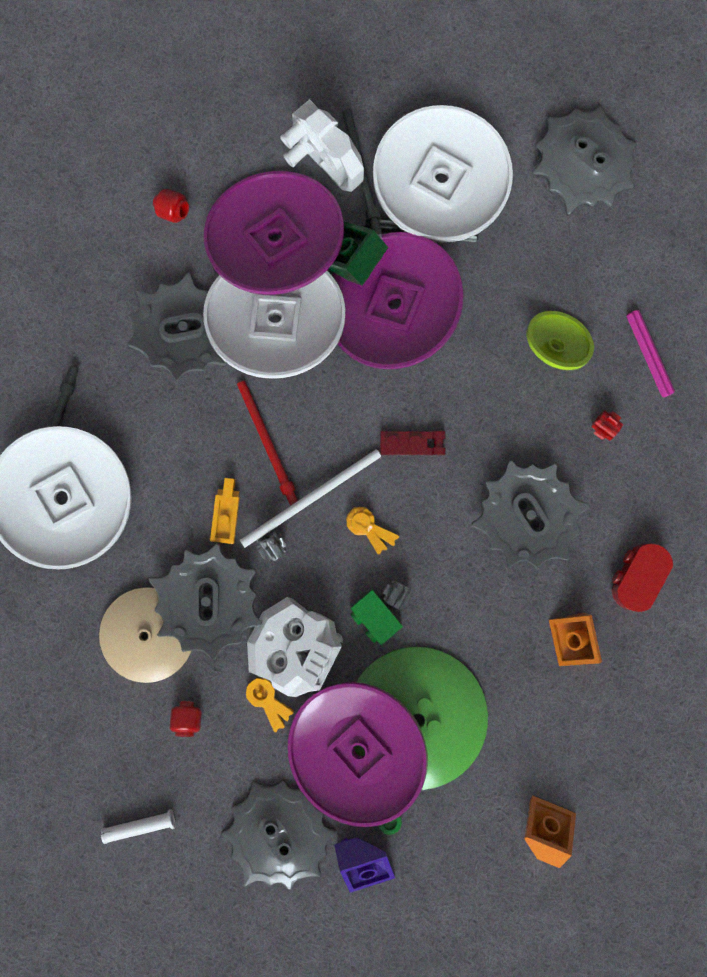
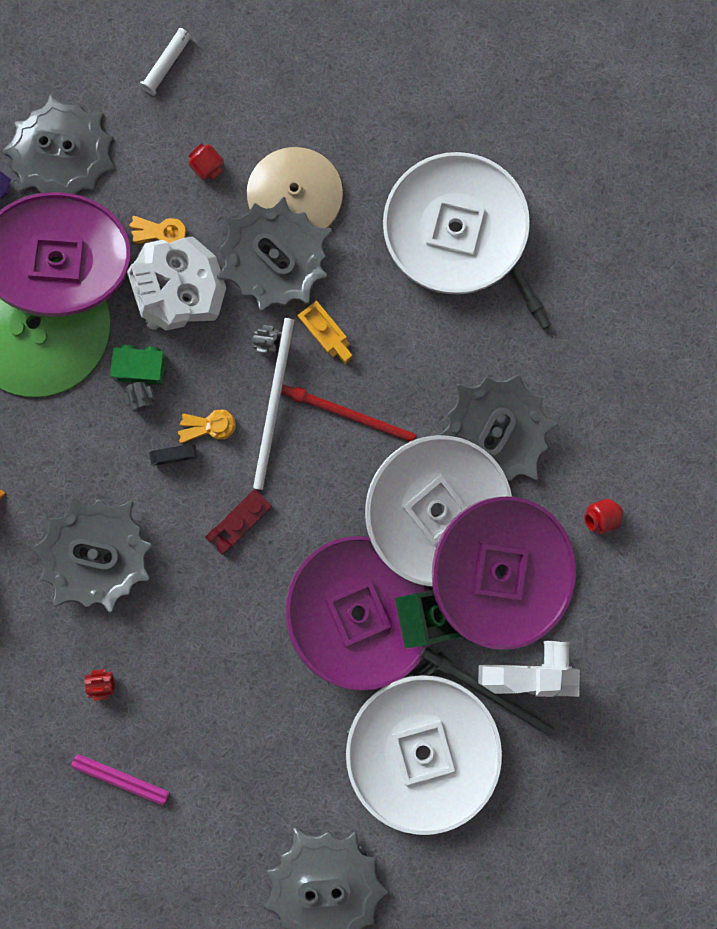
camera: 140 degrees right, 5 degrees down
(412, 531) = (173, 454): none -> black beam
(560, 340) = (200, 725): lime dish -> none

